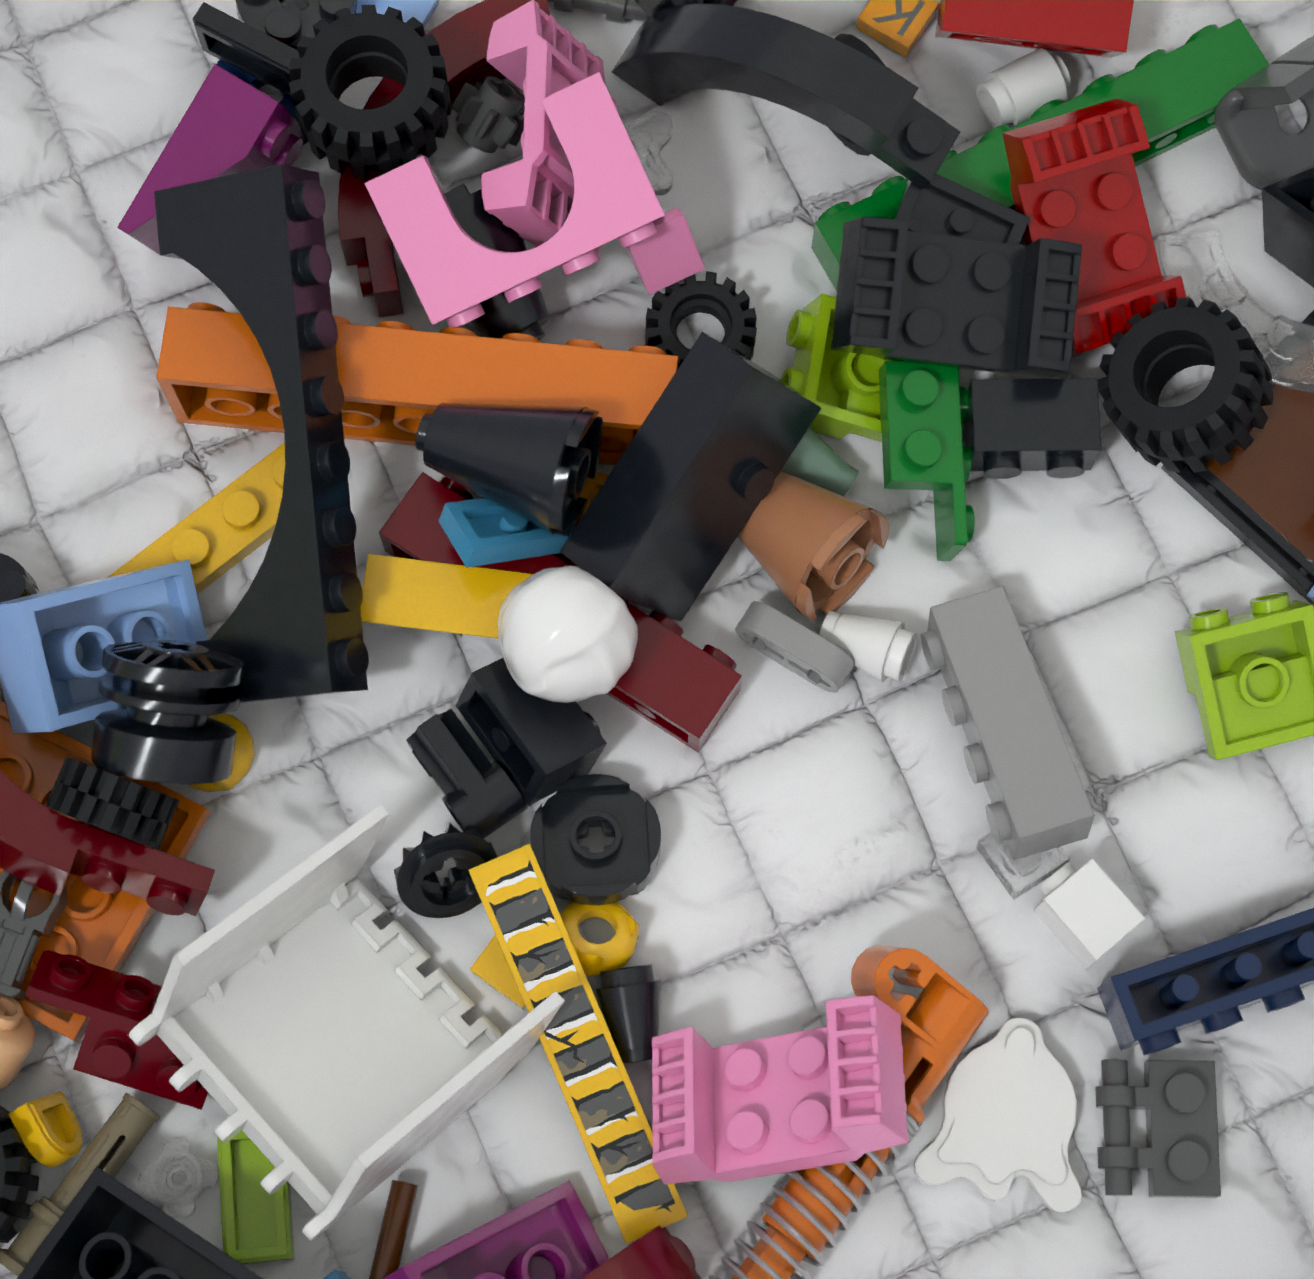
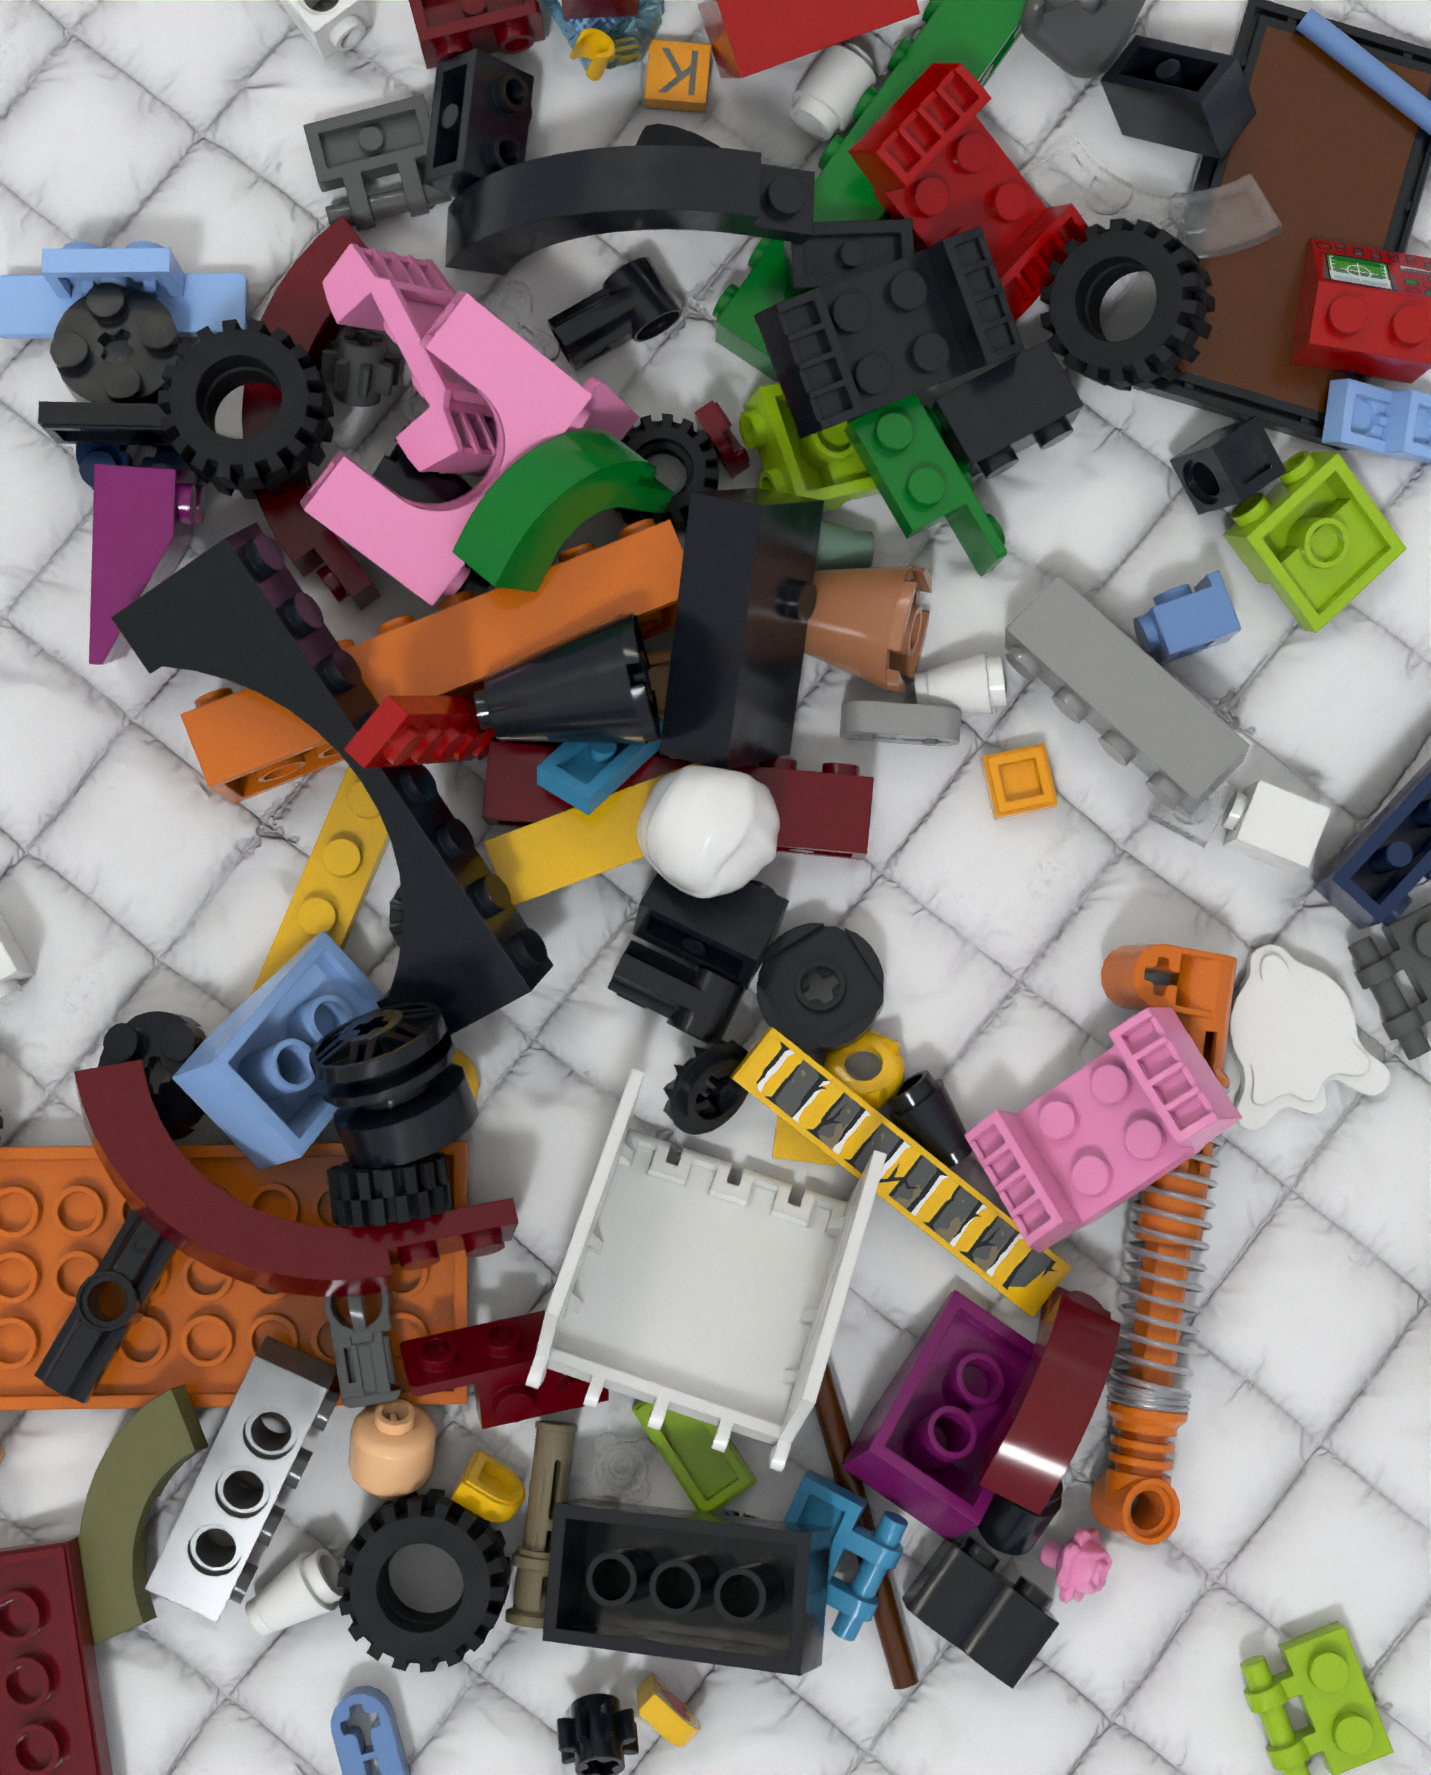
camera: 30 degrees left, 10 degrees up
(356, 413) = (421, 732): none -> red plate
(582, 278) = (547, 498): none -> green arch
(750, 179) = (628, 307): none -> black piece
(769, 326) = (716, 426): none -> dark red tile
(875, 755) = (1019, 781): none -> light orange tile
(1102, 690) = (1187, 620): none -> medium blue brick
(1208, 569) = (1228, 465): none -> black brick

